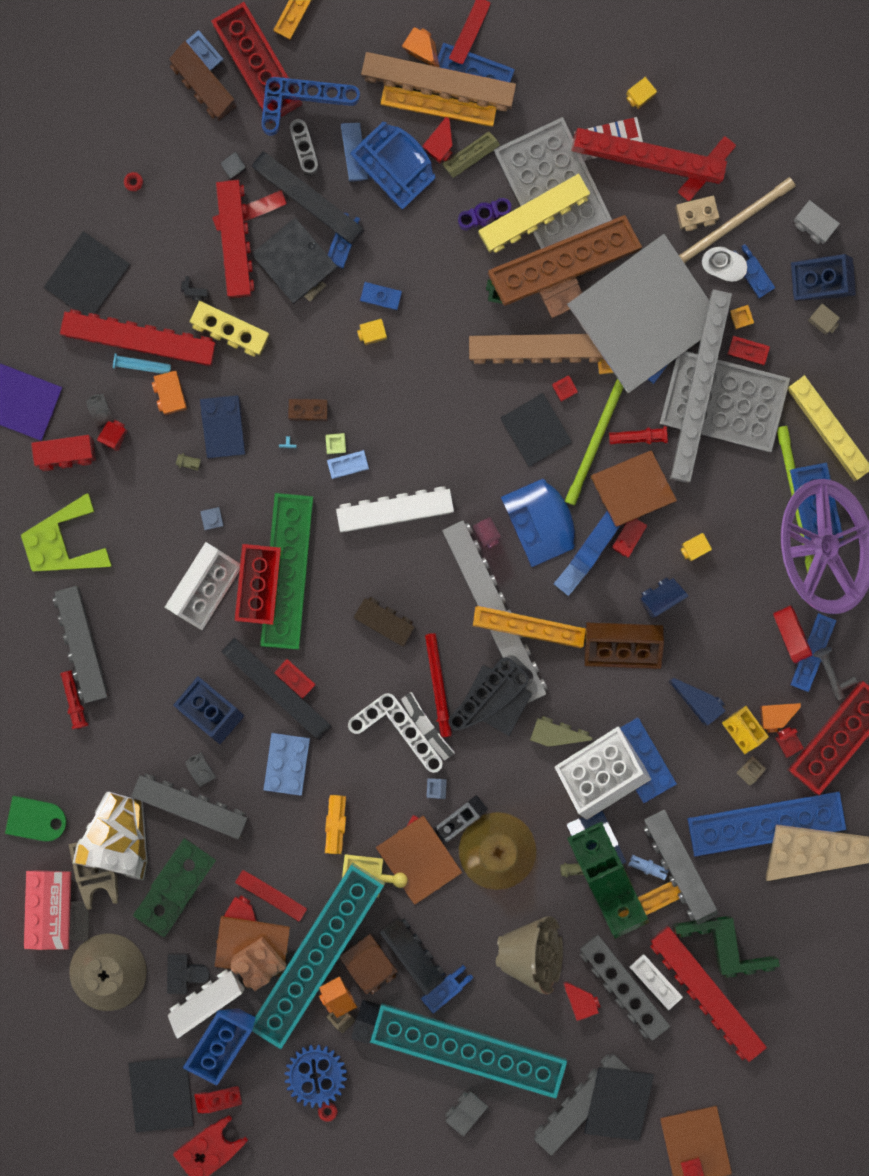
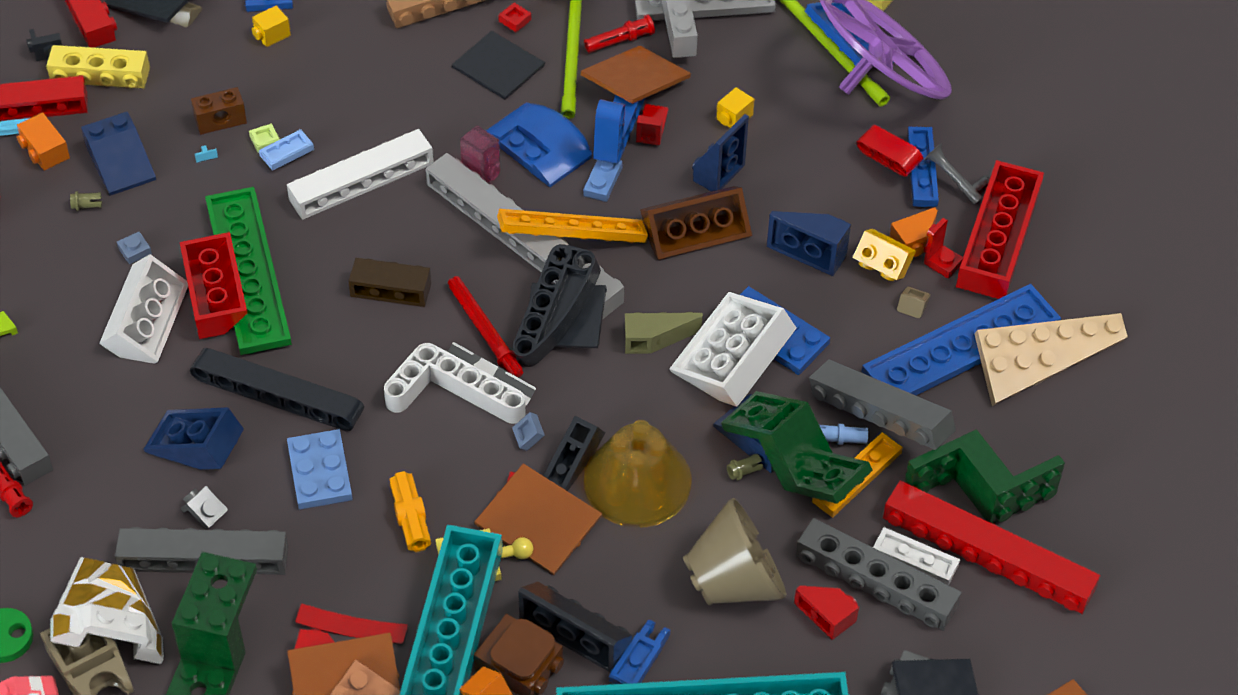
camera: 20 degrees left, 35 degrees down
(294, 678) = (299, 368): red plate -> none

